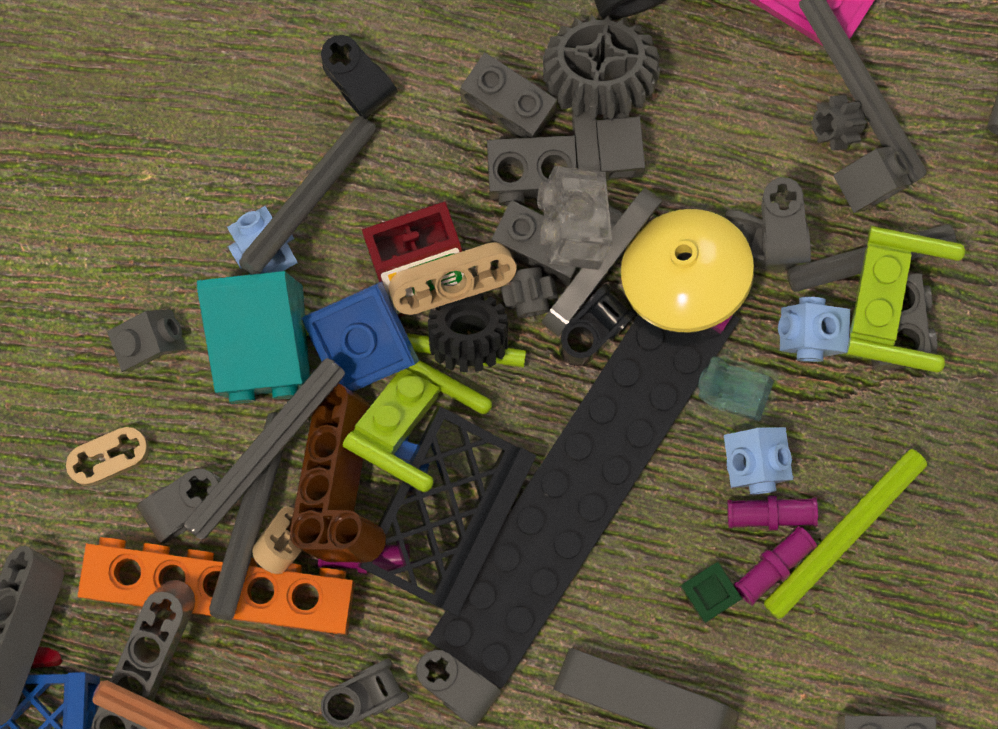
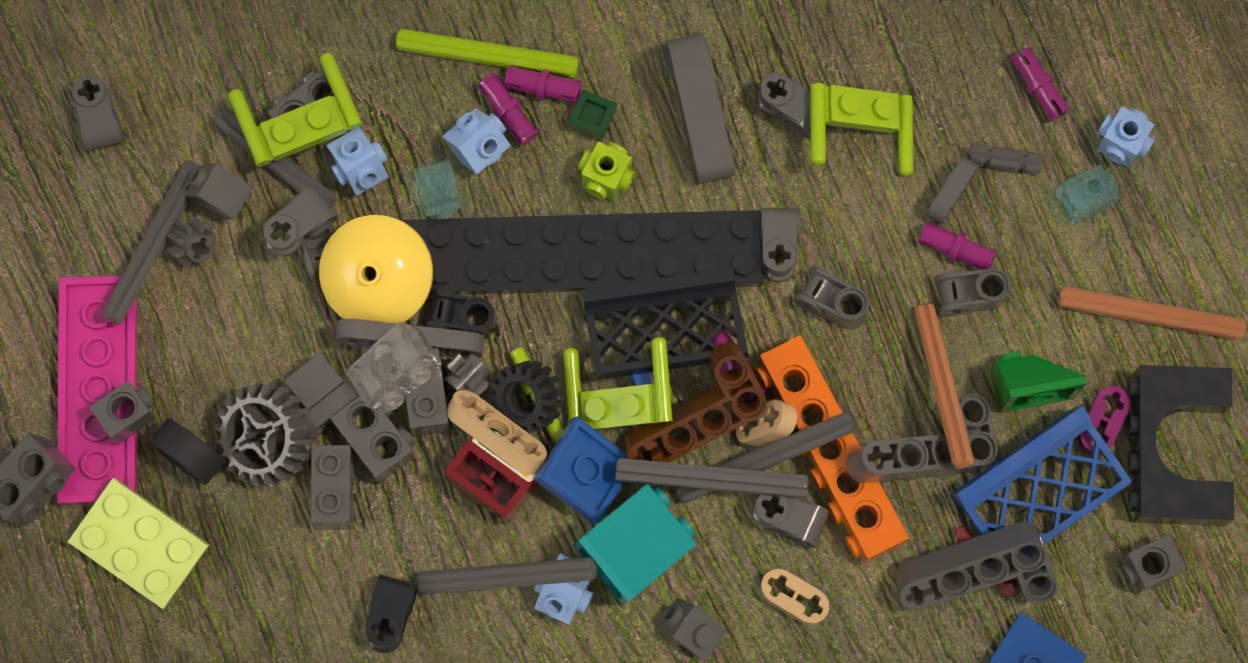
camera: 125 degrees left, 5 degrees down
(628, 575) = (606, 183): none -> lime brick

